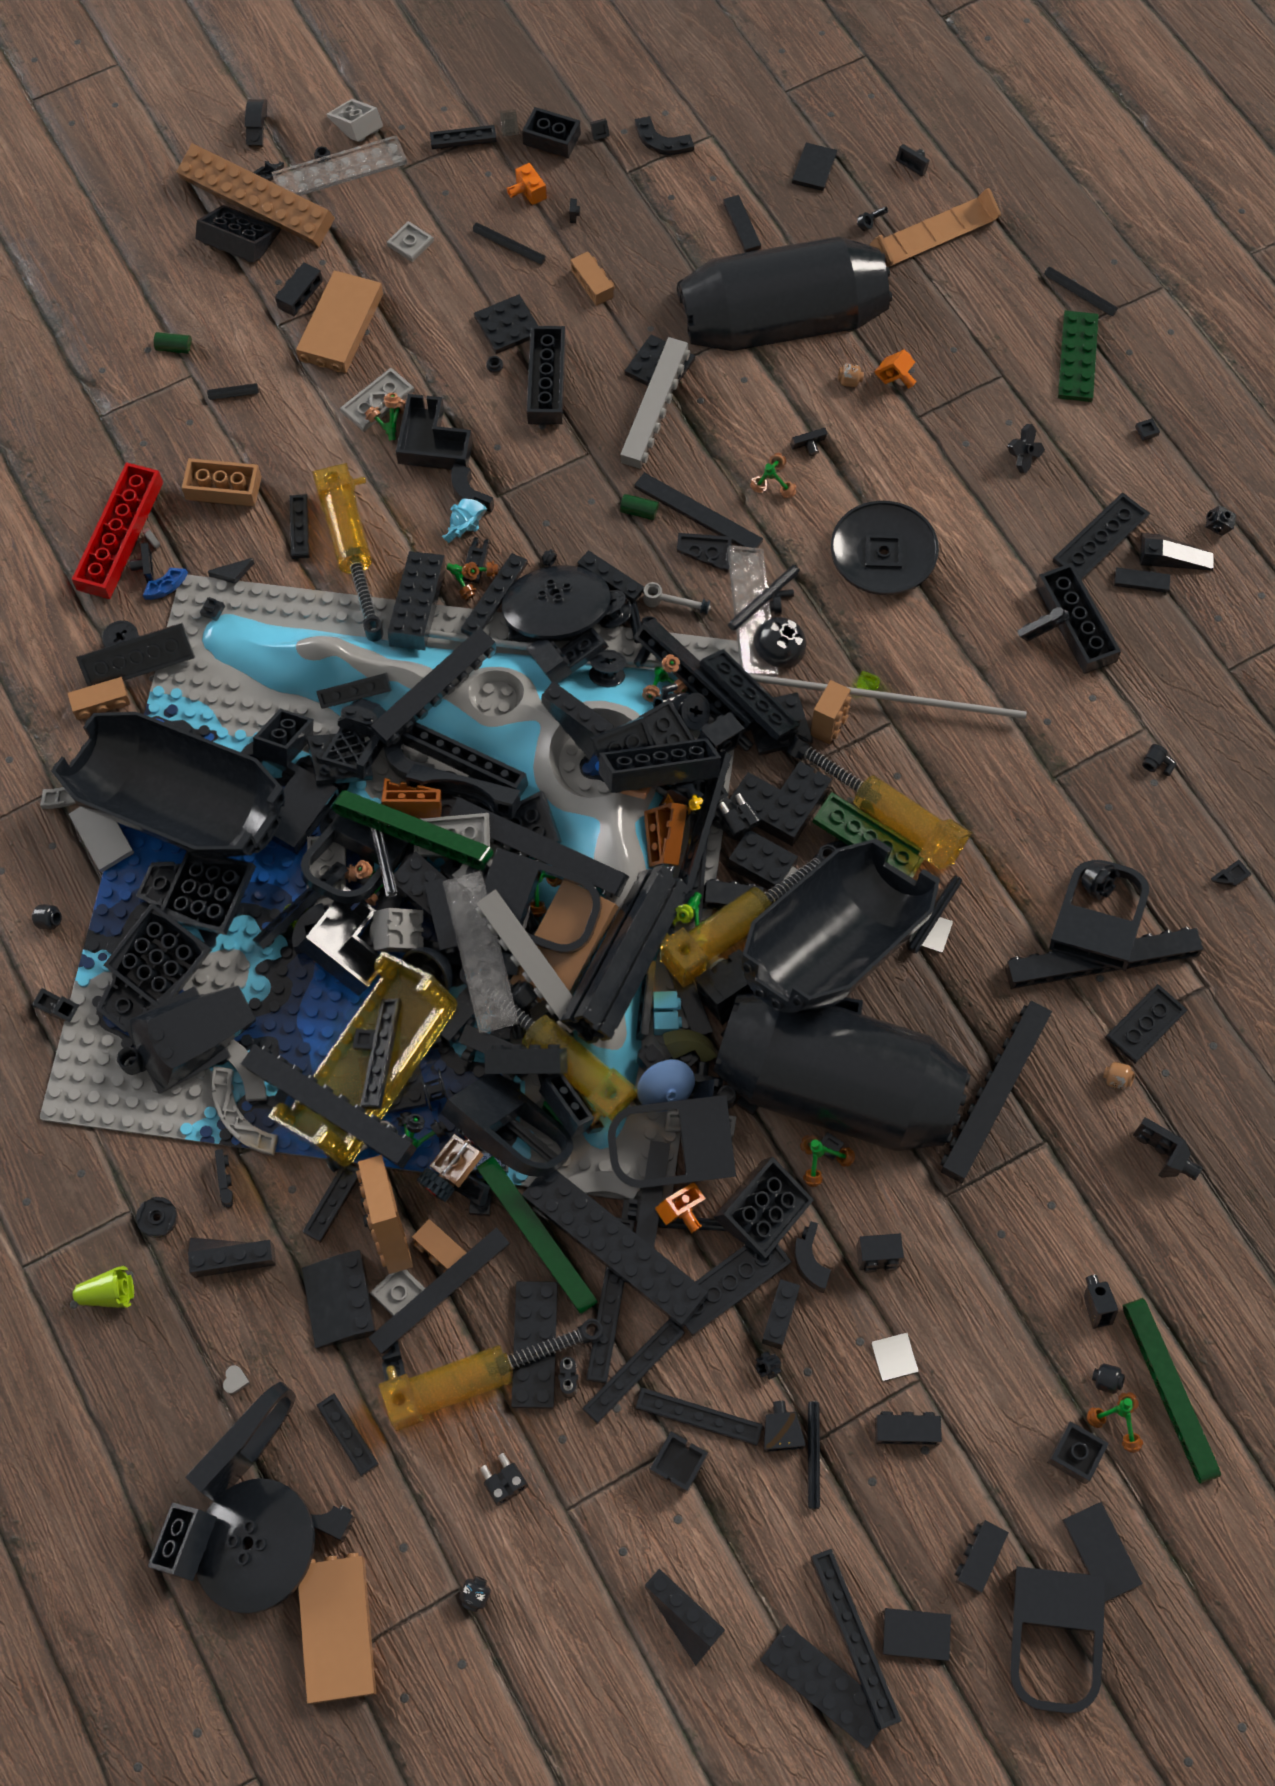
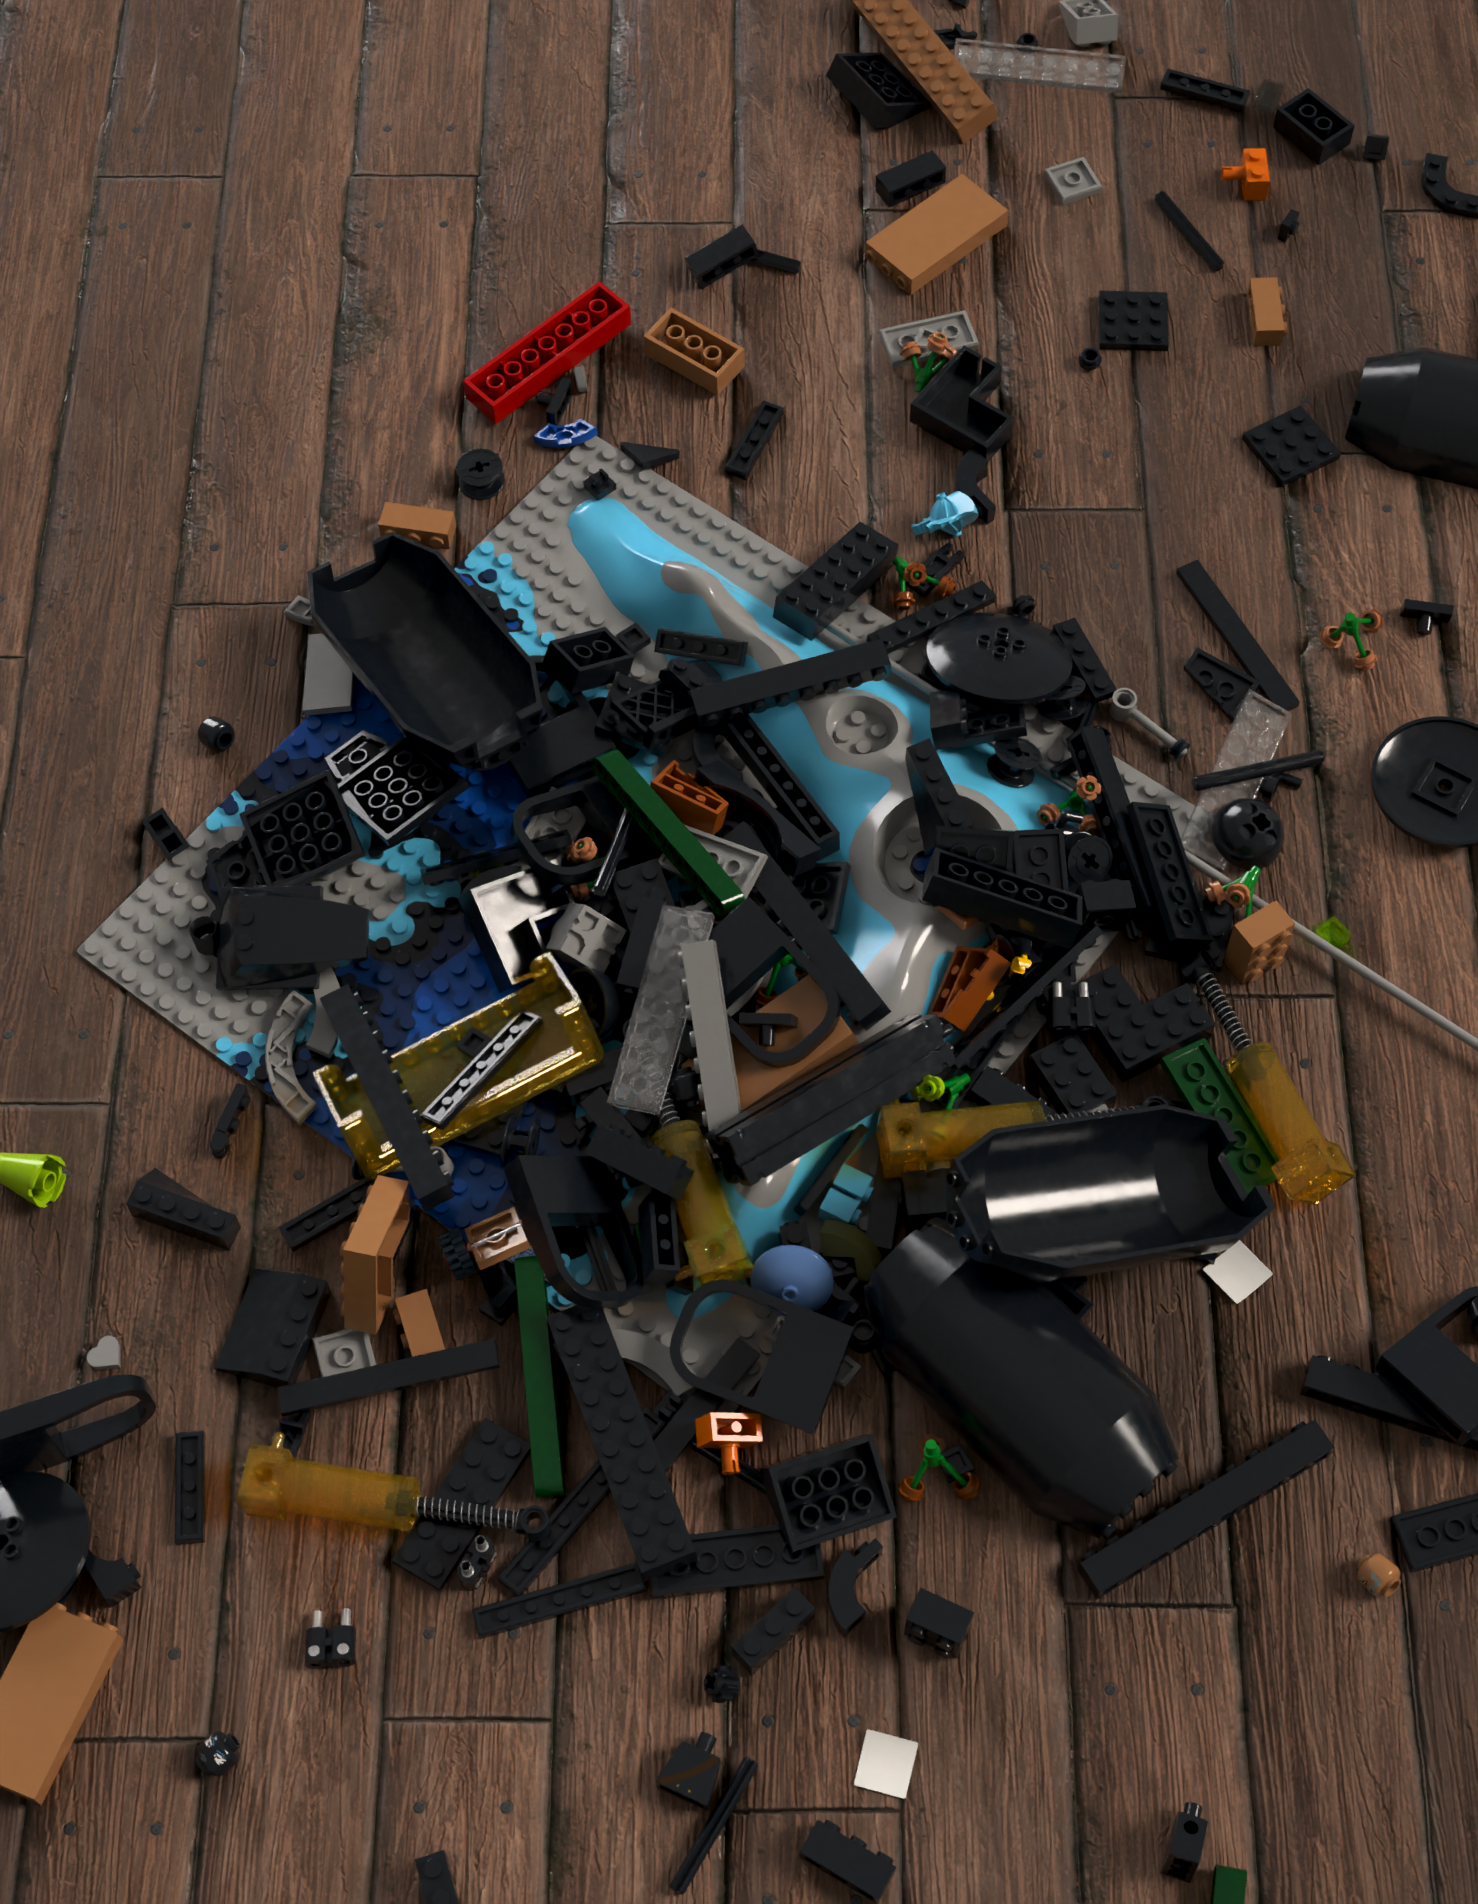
camera: 30 degrees right, 5 degrees down
(137, 655) = (485, 496): black plate -> none
(149, 1210) = (129, 1114): black plate -> none
(172, 342) = (733, 177): dark green brick -> none
(200, 404) = (722, 256): none -> black brick
(303, 706) = (633, 638): none -> black tile
(347, 534) = (814, 427): clear yellow piece -> none
(415, 1123) = (468, 1168): black plant -> none
(546, 375) = (1143, 396): black brick -> none
(556, 926) = (768, 1023): none -> black tile
(639, 507) = (1167, 596): dark green brick -> none
(654, 403) = (1256, 485): light grey brick -> none
(678, 1462) = (542, 1738): black piece -> none
(699, 1416) = (604, 1699): black tile -> none
(802, 688) = (1238, 892): none -> nougat plant
(939, 907) = (1254, 1252): black axle -> none
(1171, 1145) = (1390, 1691): black plate -> none

